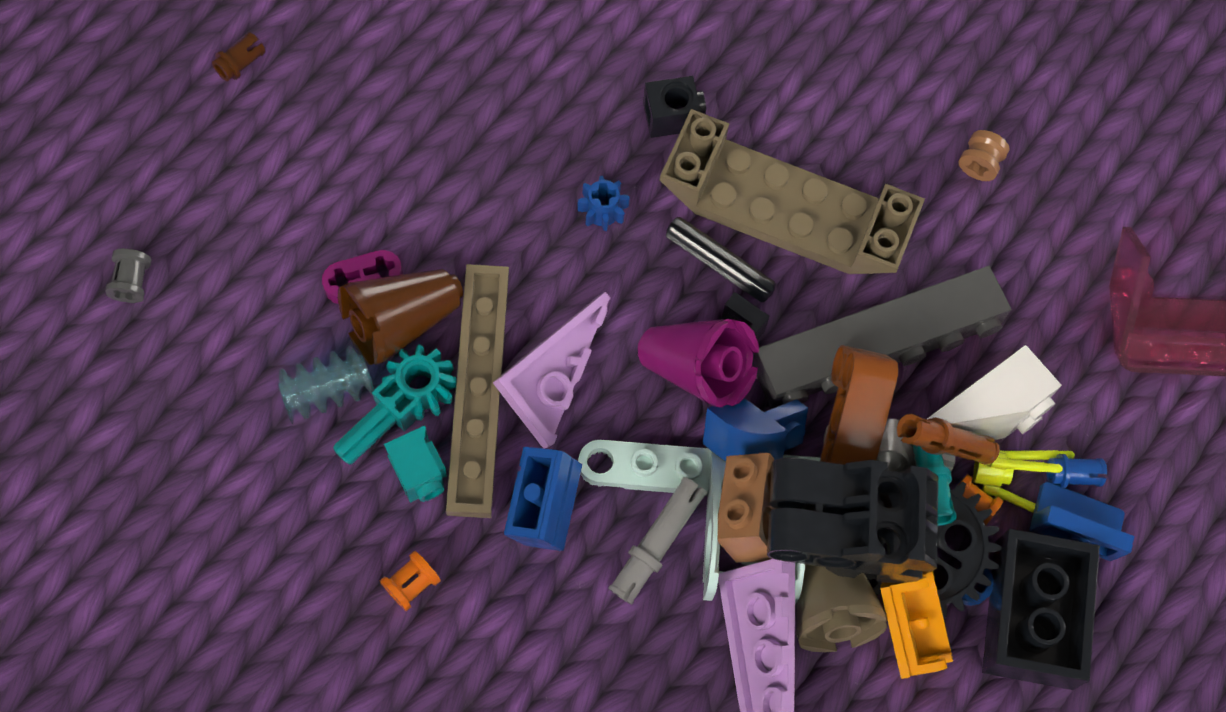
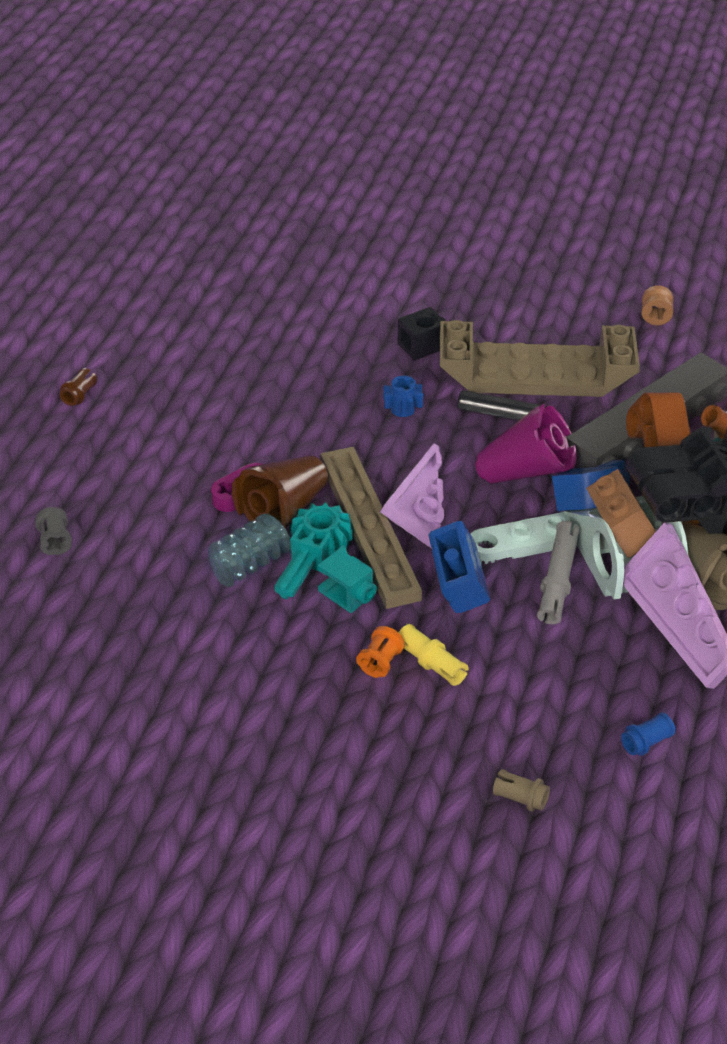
camera: 15 degrees left, 25 degrees down
(465, 604) = (433, 655): none -> light yellow pin

